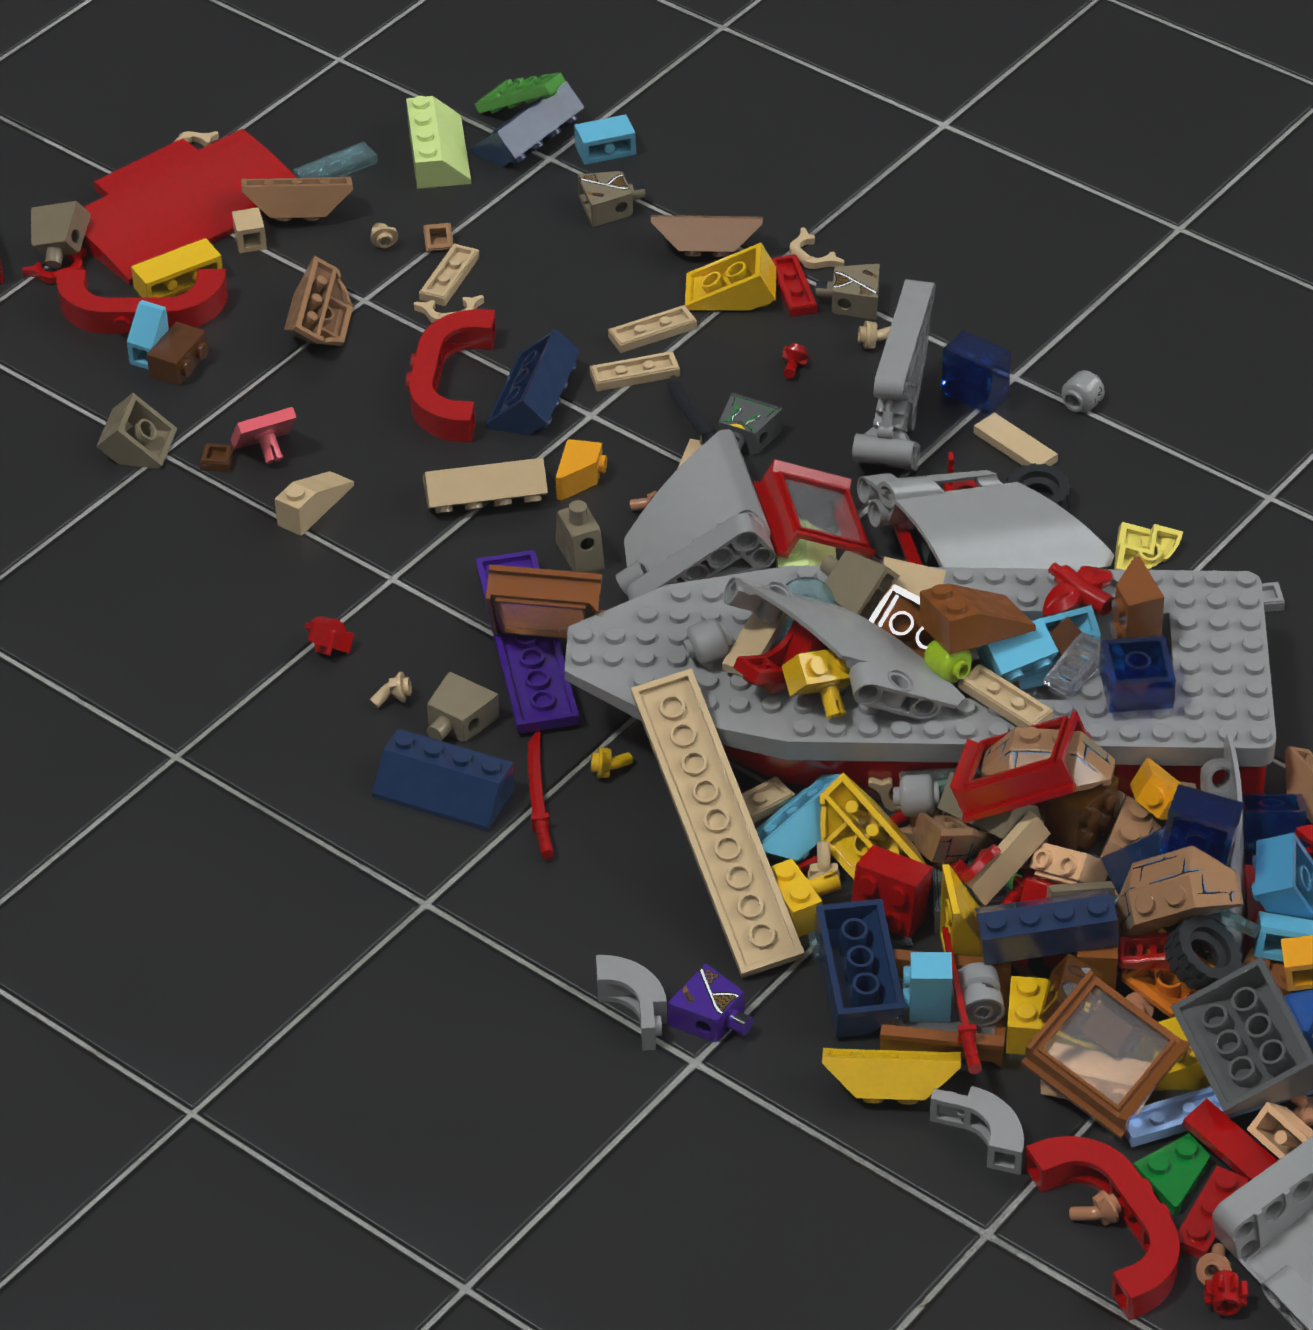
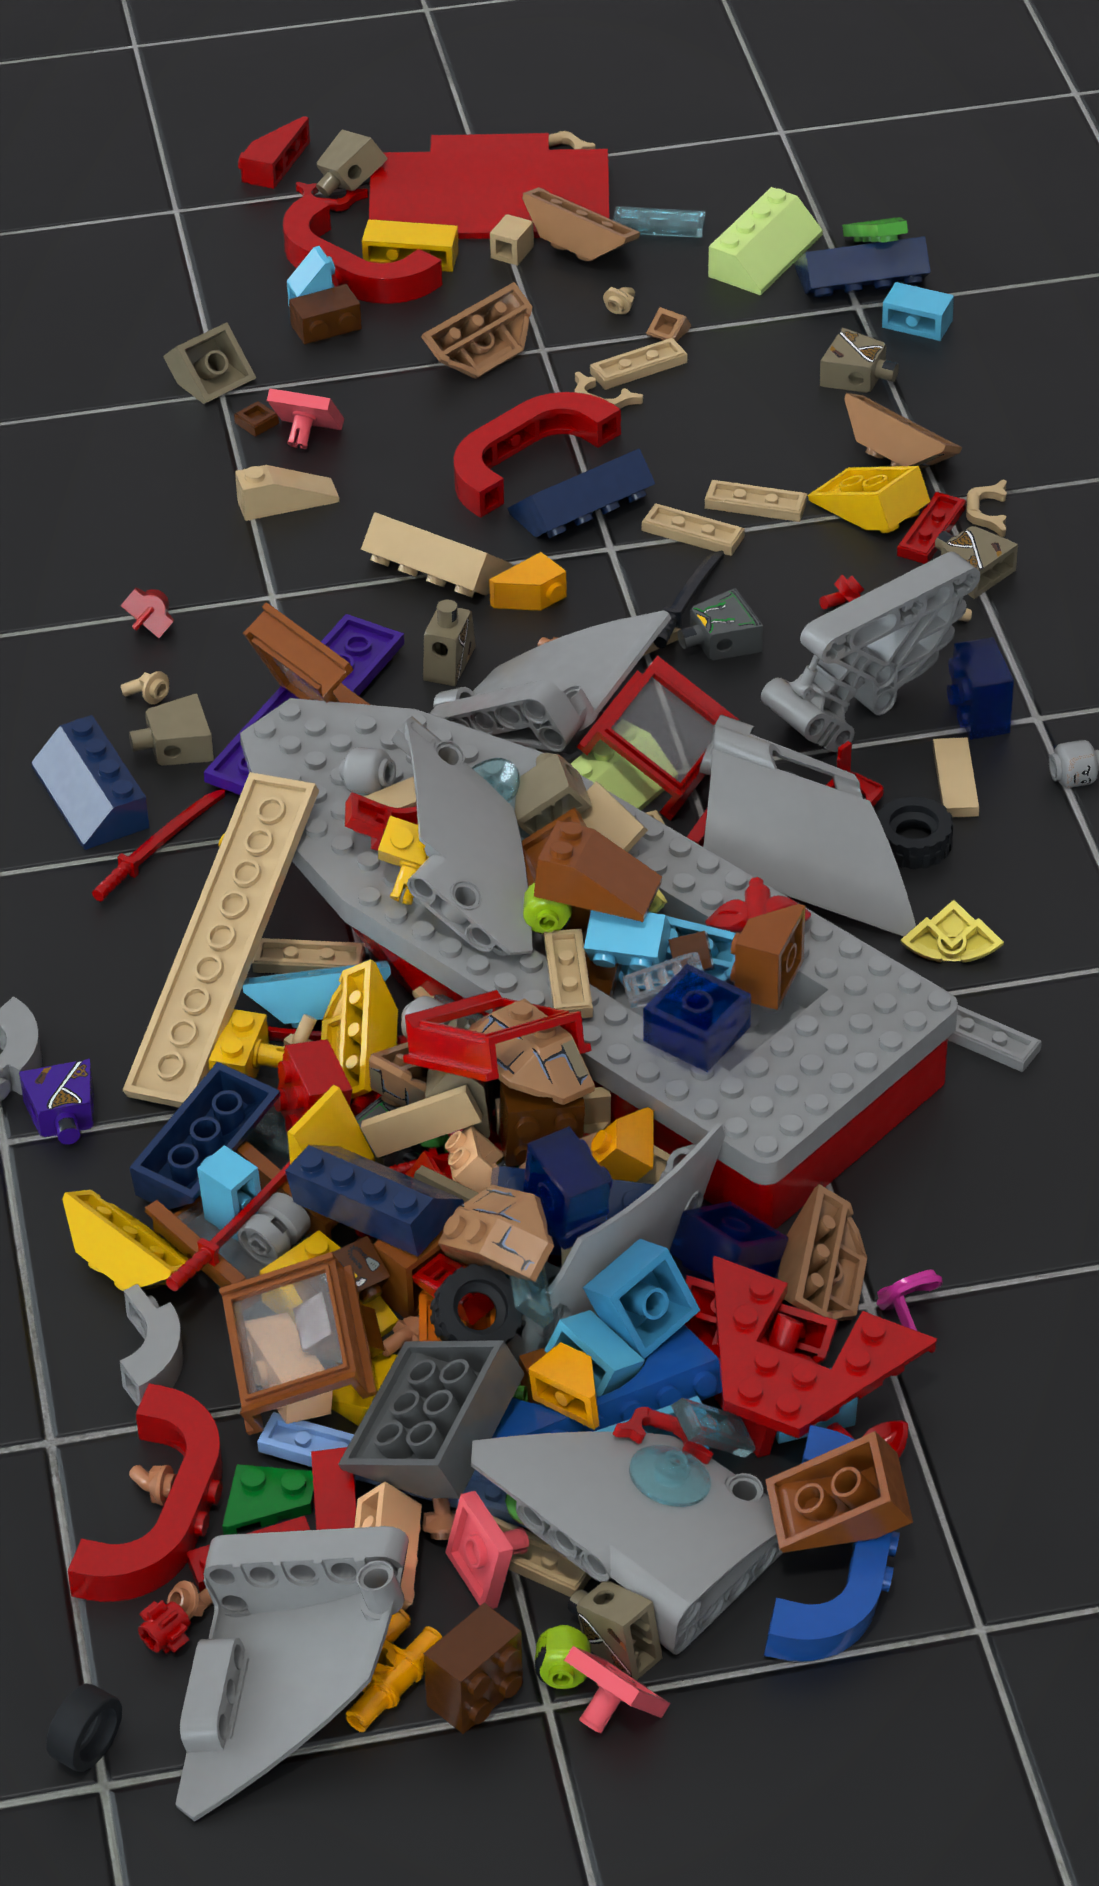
camera: 40 degrees right, 0 degrees up
(984, 856) = (363, 1111): red helmet -> none

